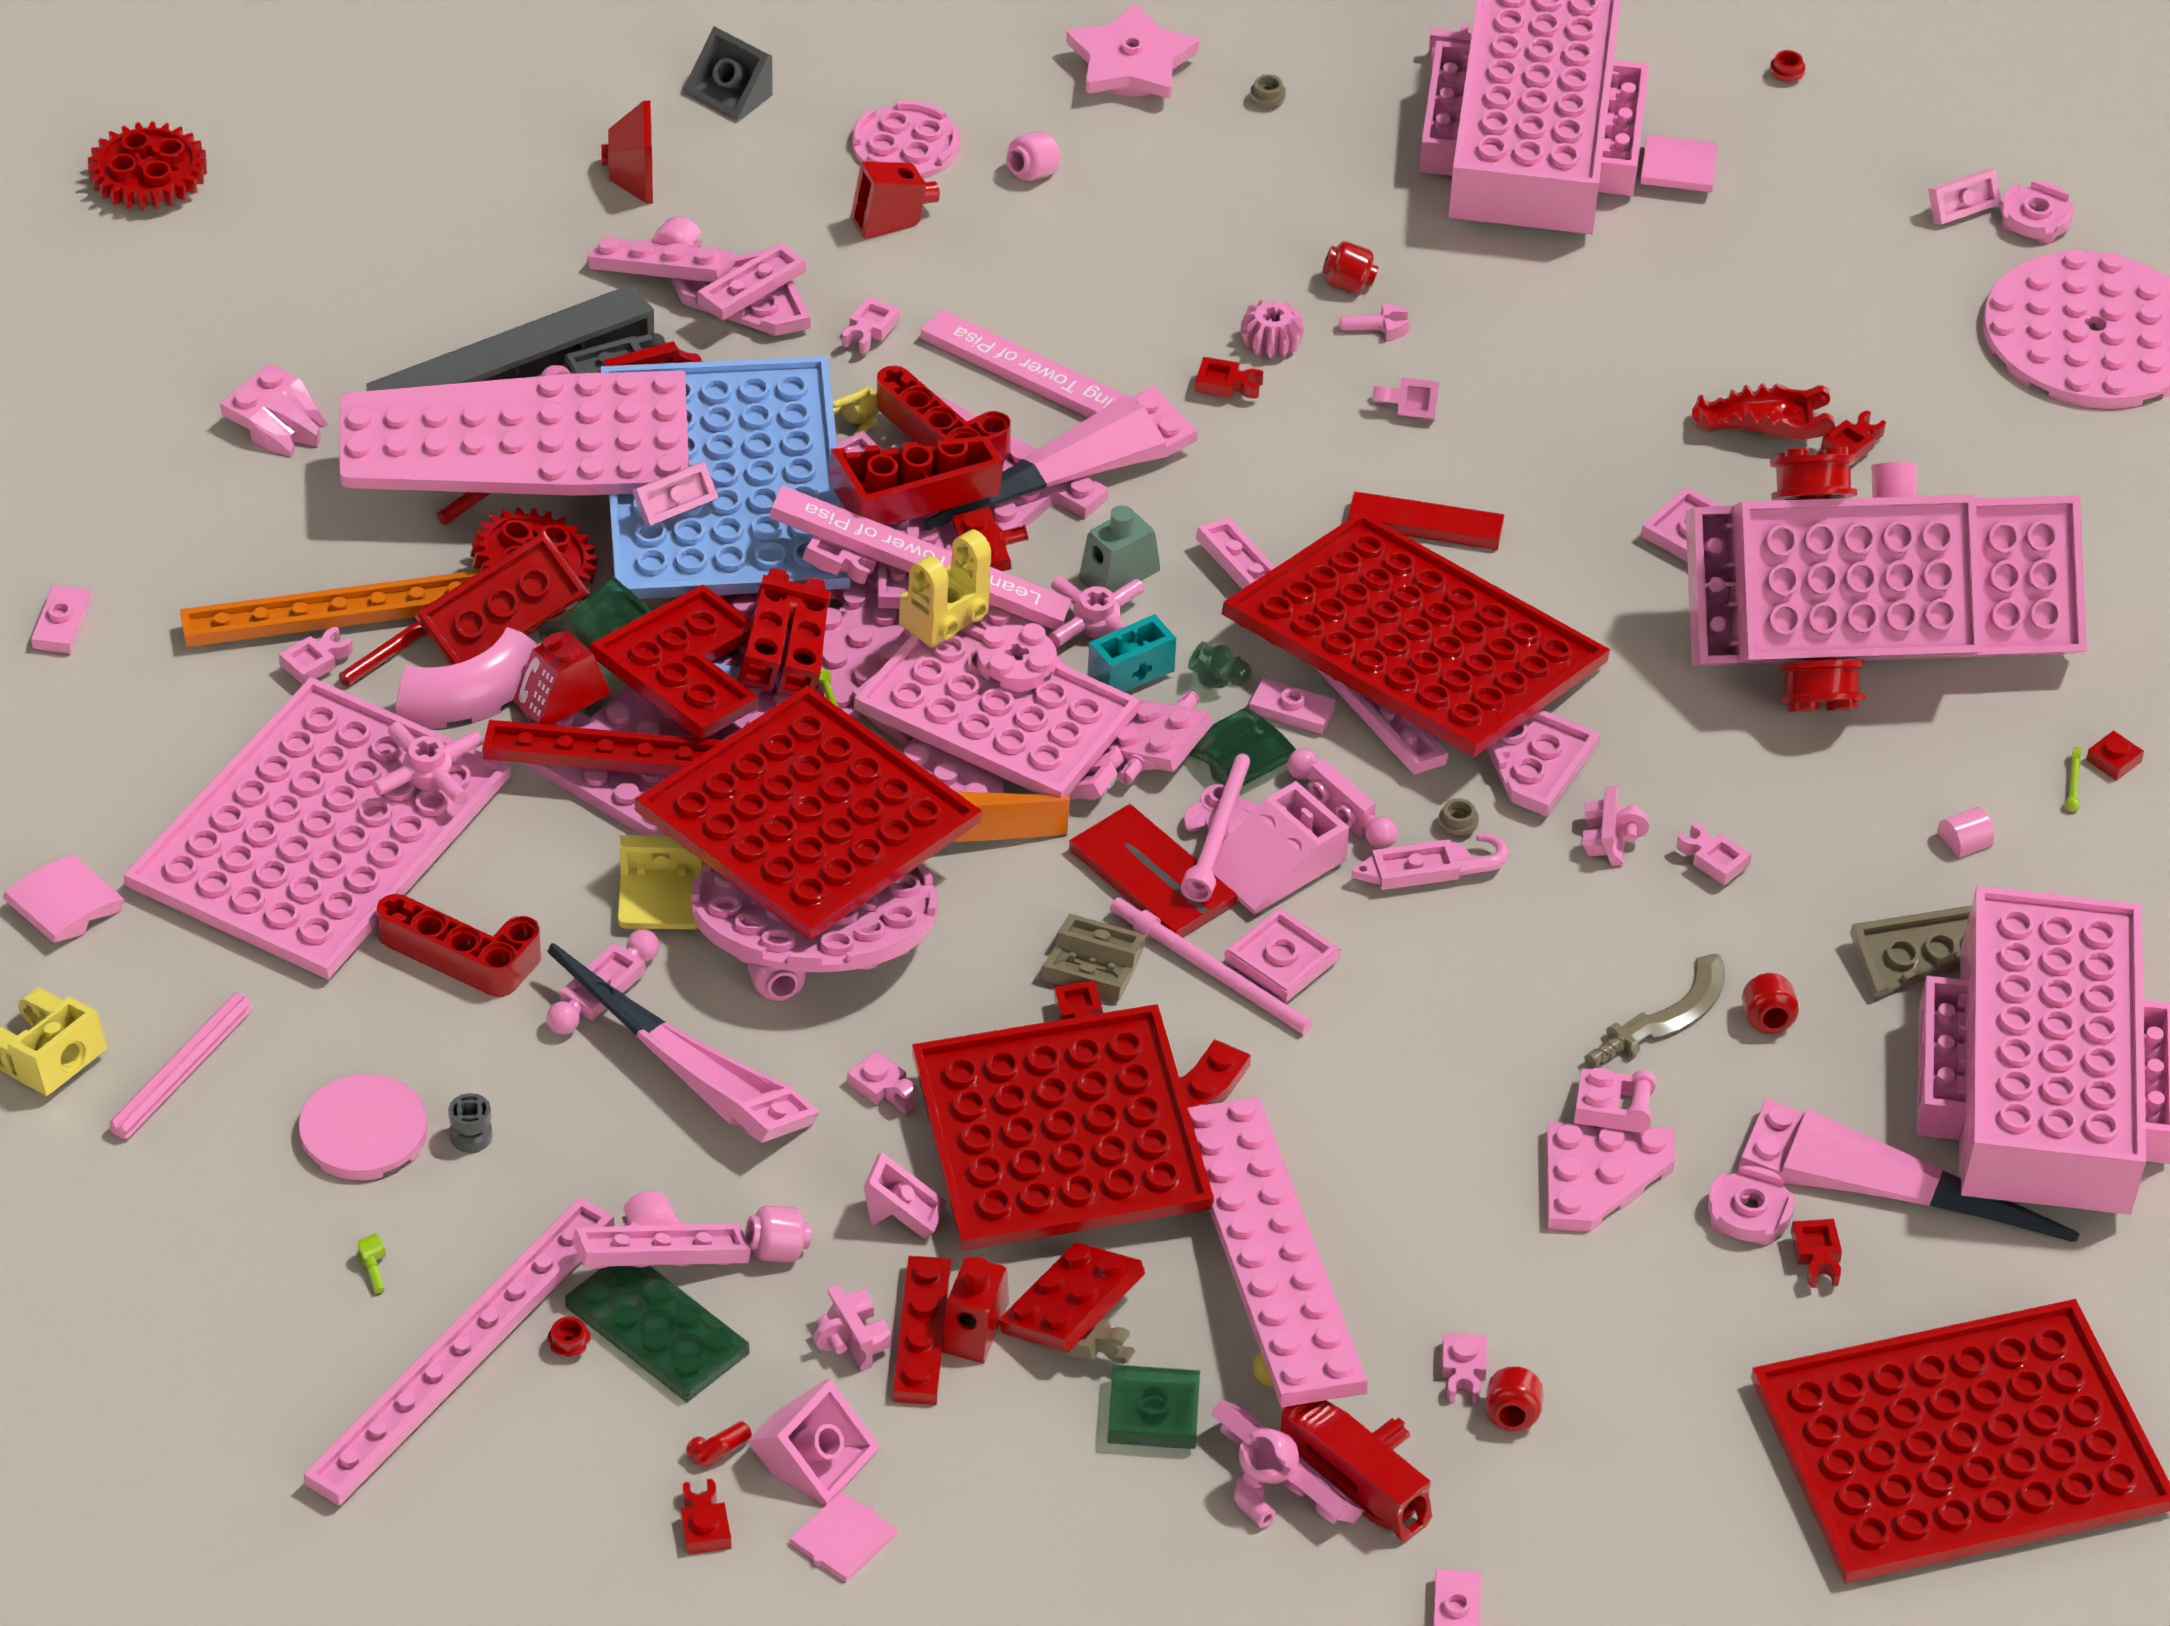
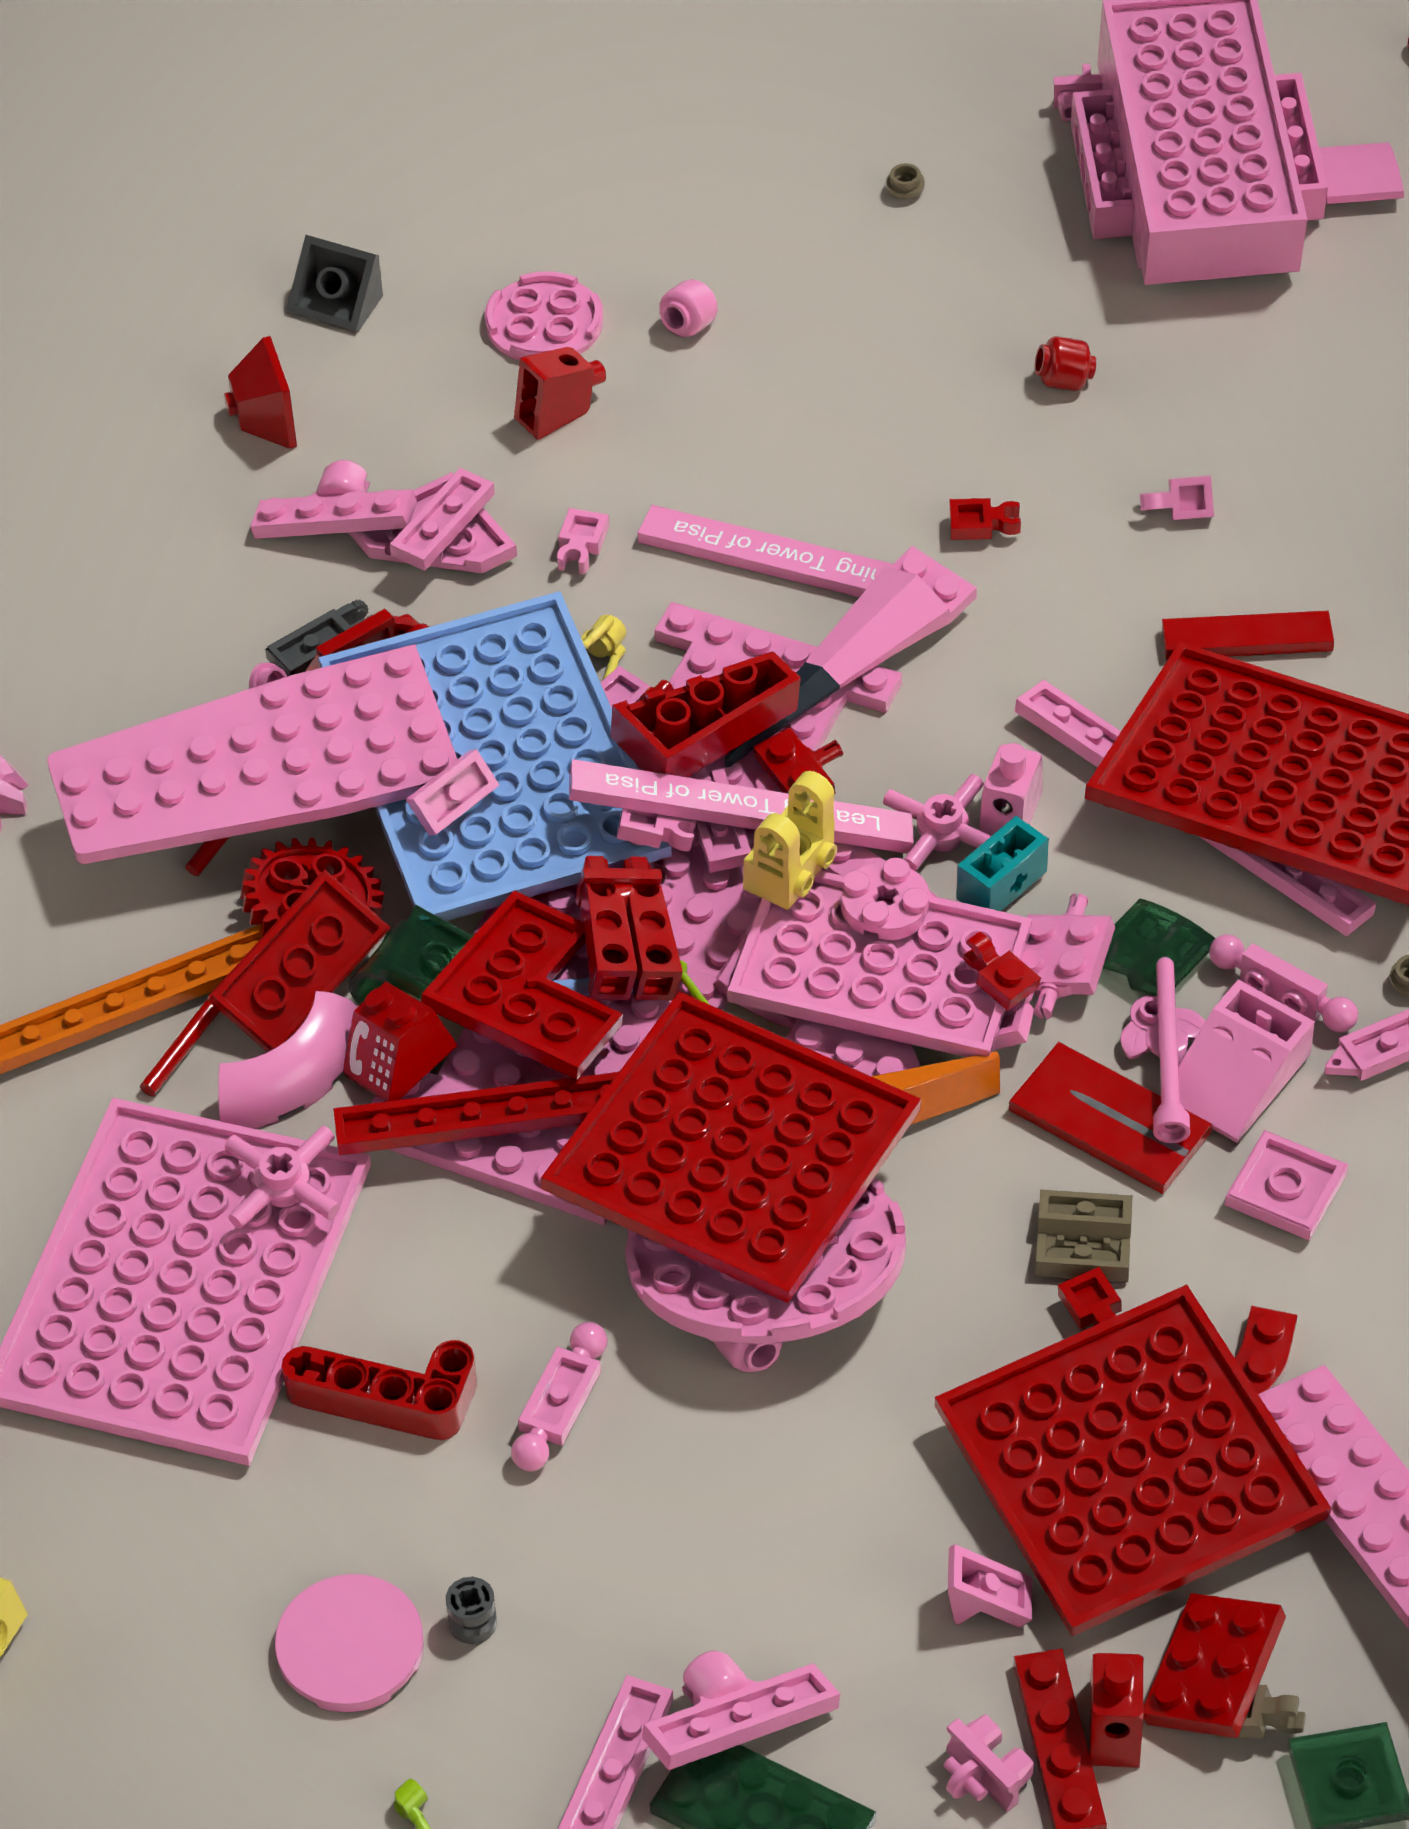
camera: 10 degrees left, 5 degrees up
(180, 1066) = (117, 1617): bright pink axle -> none
(315, 658) = (106, 1074): bright pink plate -> none
(534, 345) = (221, 653): dark grey brick -> none
(656, 883) = (580, 1263): light yellow bracket -> none
(733, 1090) = (748, 1495): bright pink plate -> none
(777, 1234) = (862, 1666): bright pink head -> none
(882, 1079) = (906, 1441): bright pink plate -> none
(930, 419) = (690, 638): red beam -> none
(1094, 738) = (1001, 977): none -> red plate
(1119, 551) = (945, 749): sand green torso -> none
(1131, 54) = (750, 171): bright pink plate -> none
(1149, 924) = (1130, 1183): bright pink bar -> none
(1167, 591) = (1013, 777): none -> bright pink torso
(1217, 666) = (1093, 856): clear green animal -> none
(1272, 328) = (1009, 450): bright pink gear -> none
(1292, 706) = (1187, 884): bright pink plate -> none
(1391, 321) = (1125, 414): bright pink bar -> none

